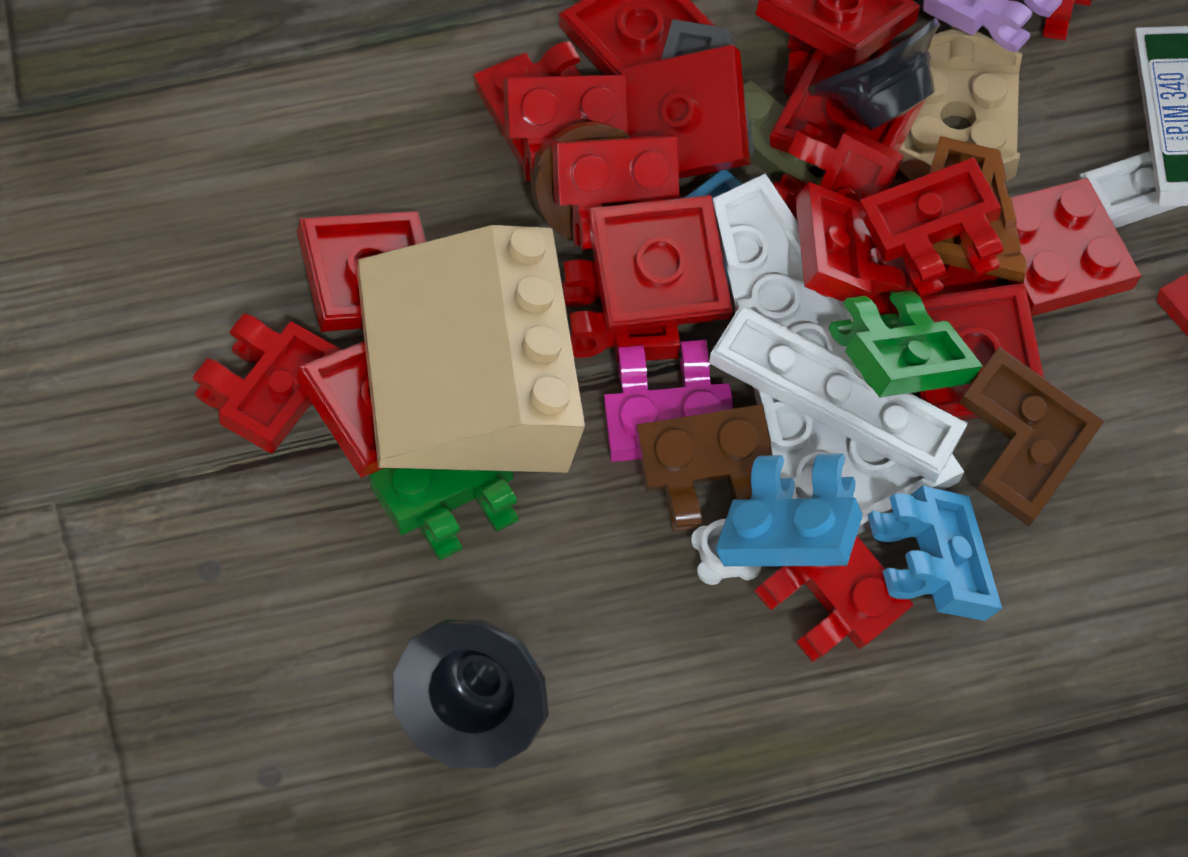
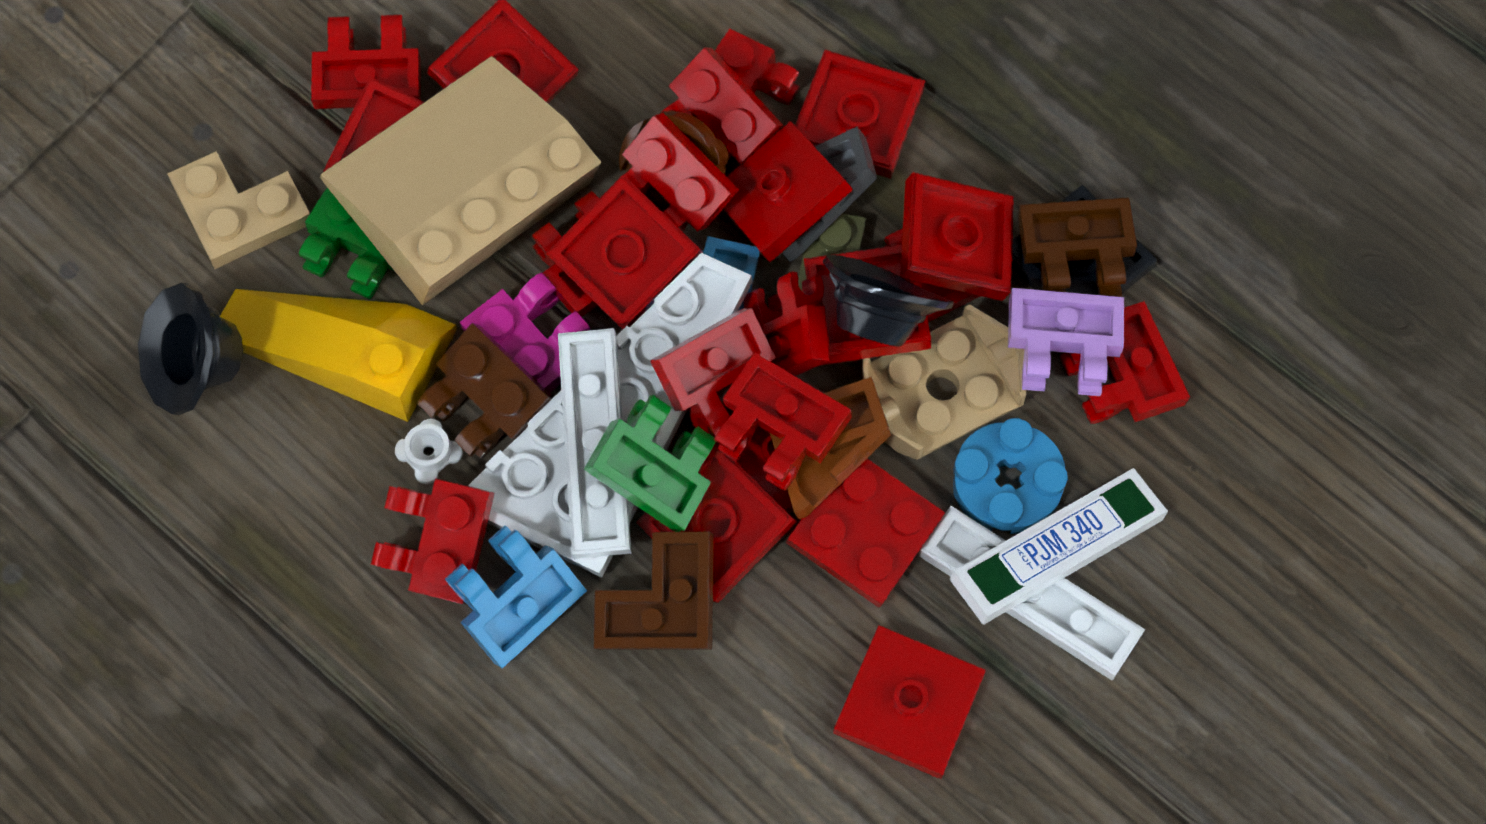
camera: 55 degrees right, 10 degrees up
(331, 598) = (234, 222): none -> tan plate
(568, 554) = (351, 346): none -> yellow wedge
(790, 530) = (439, 477): dark azure plate -> none
(1082, 93) = (1014, 446): none -> dark azure plate

